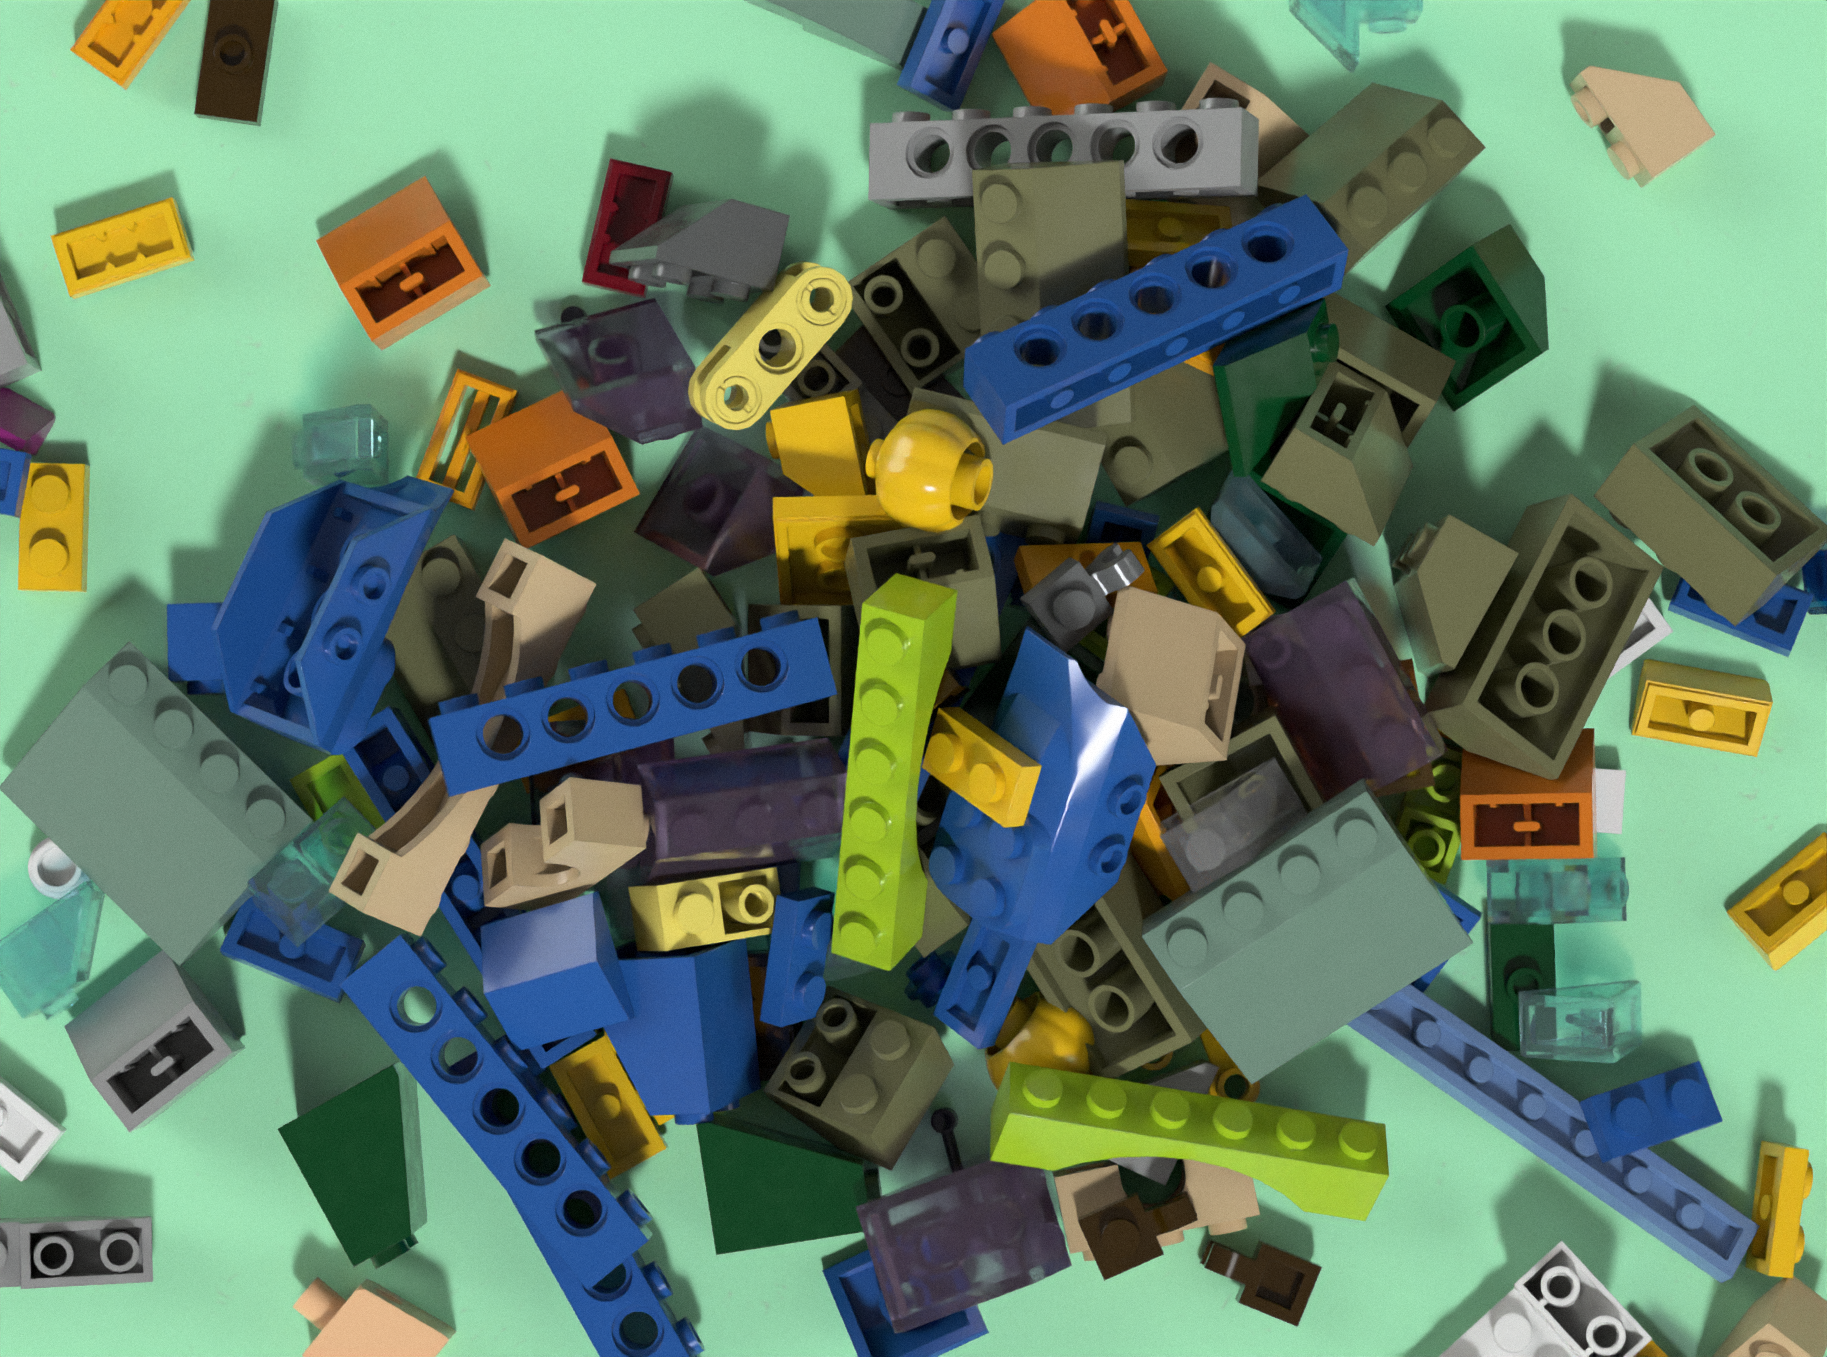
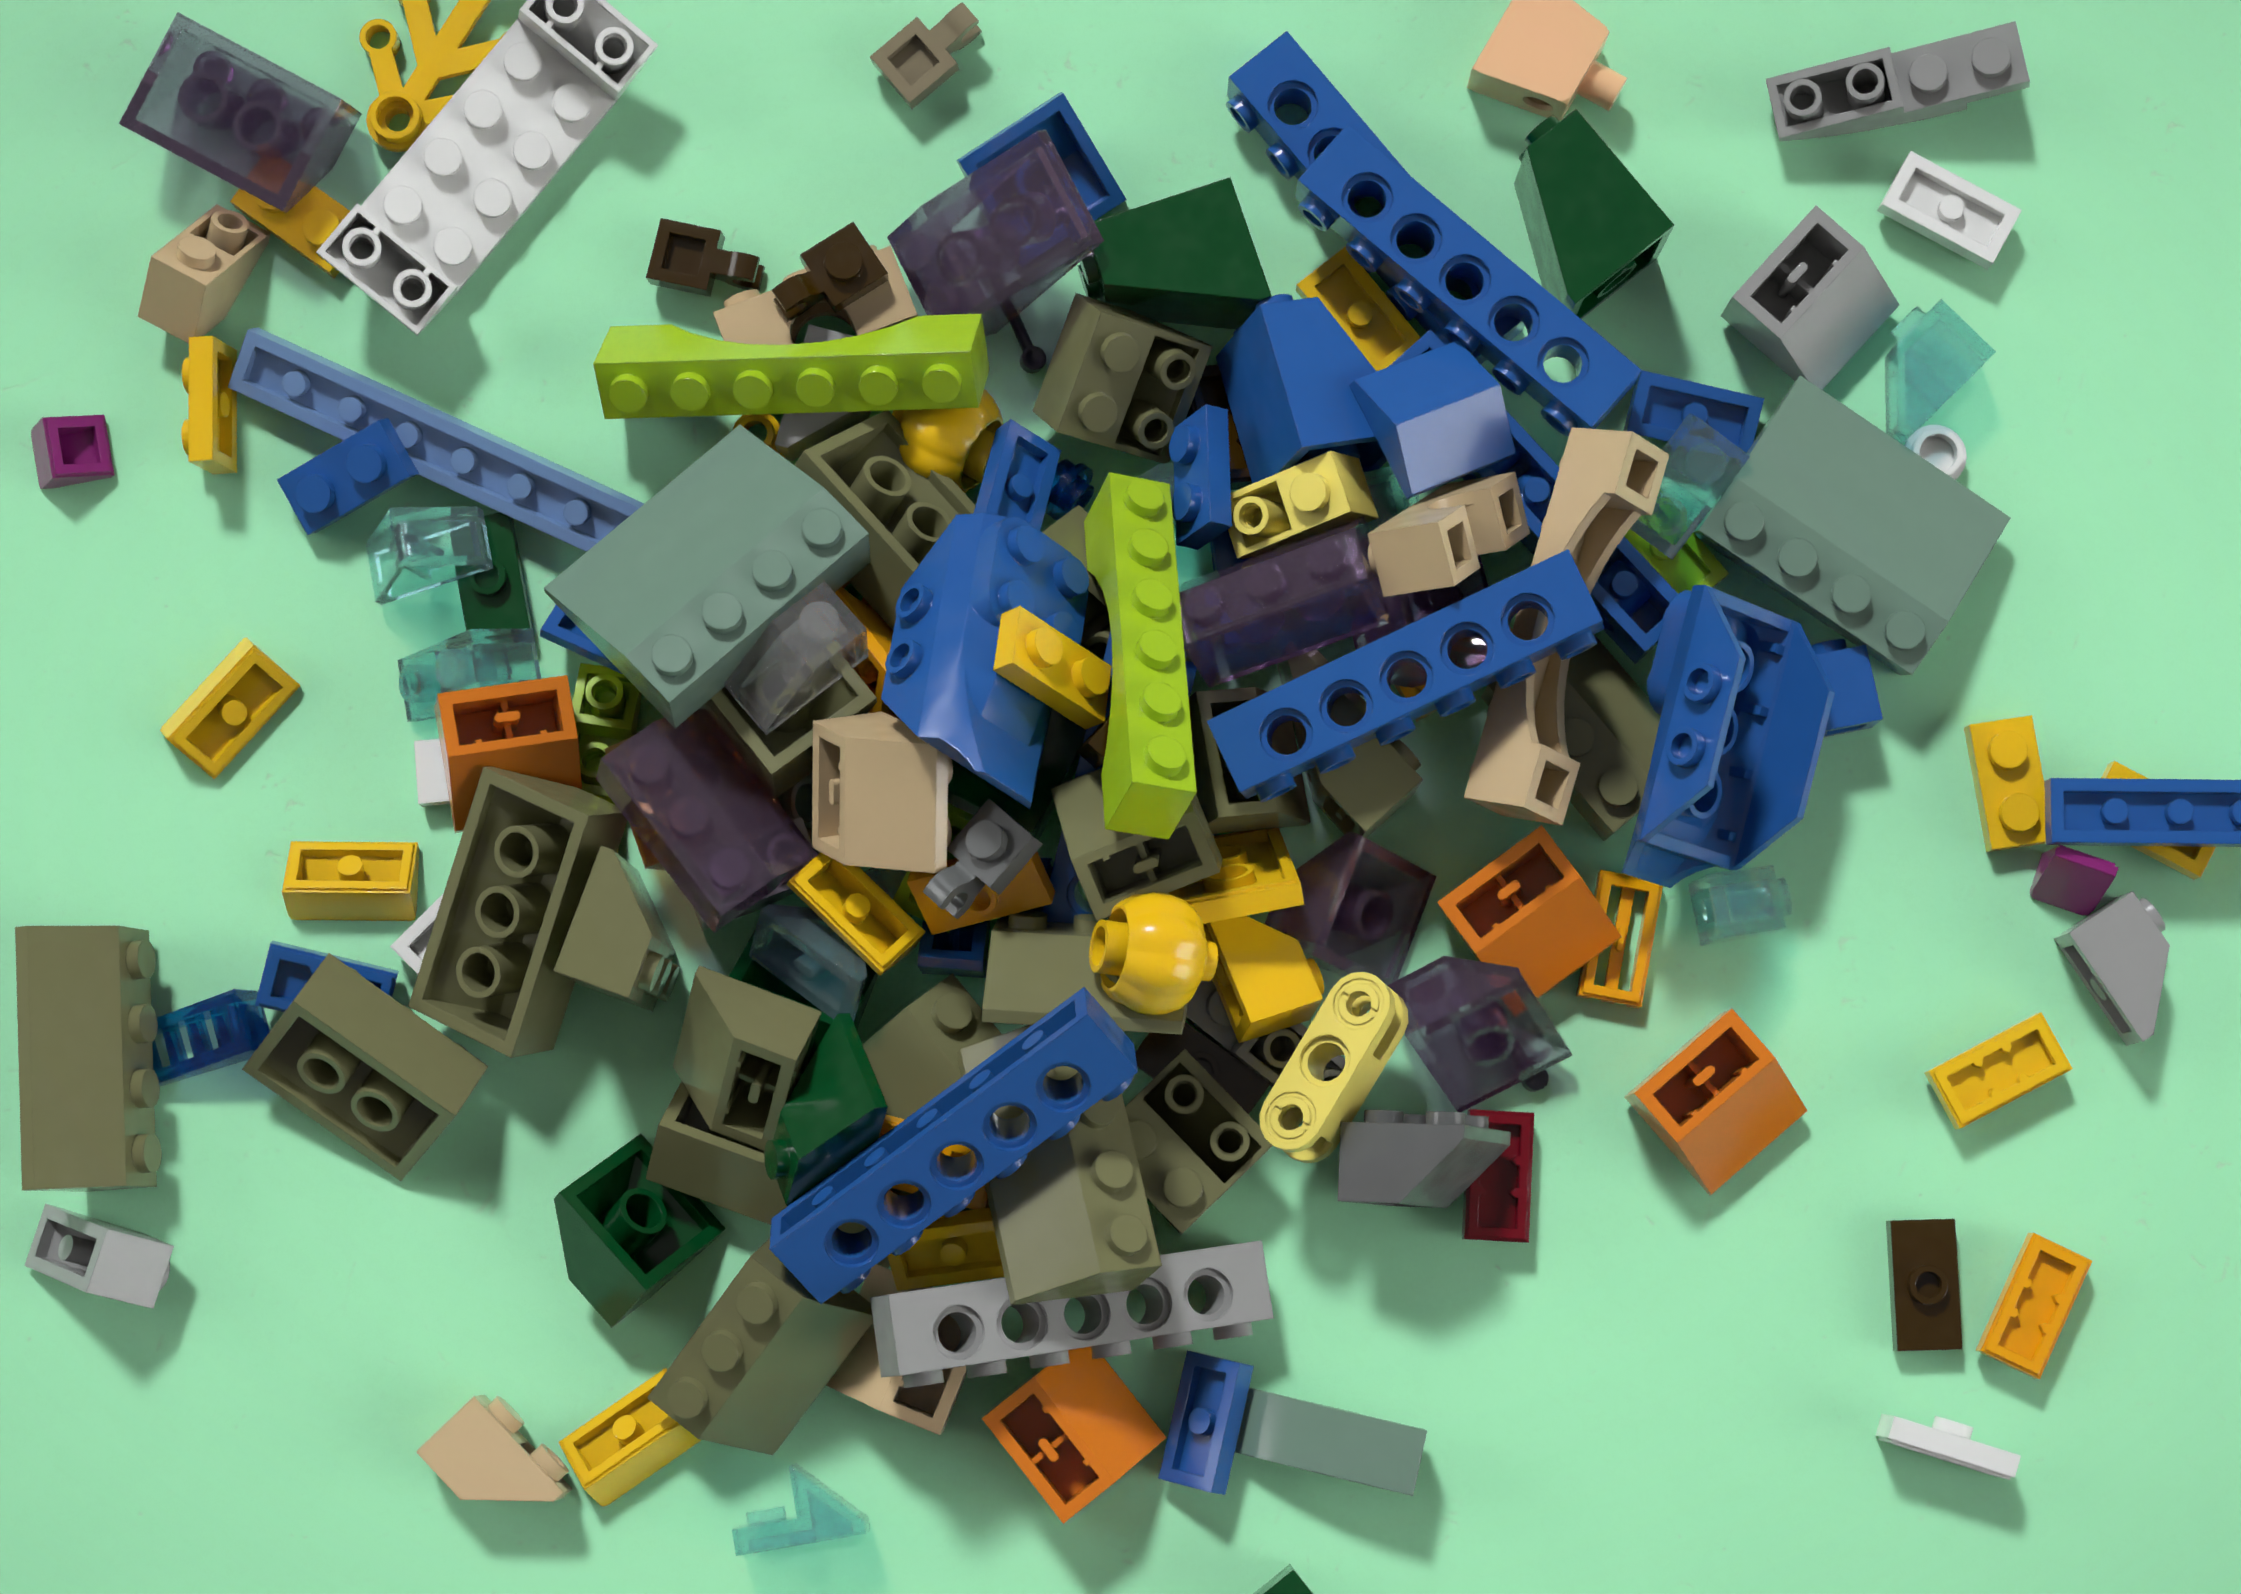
camera: 170 degrees right, 5 degrees down
(1514, 117) = (625, 1444): none -> yellow slope

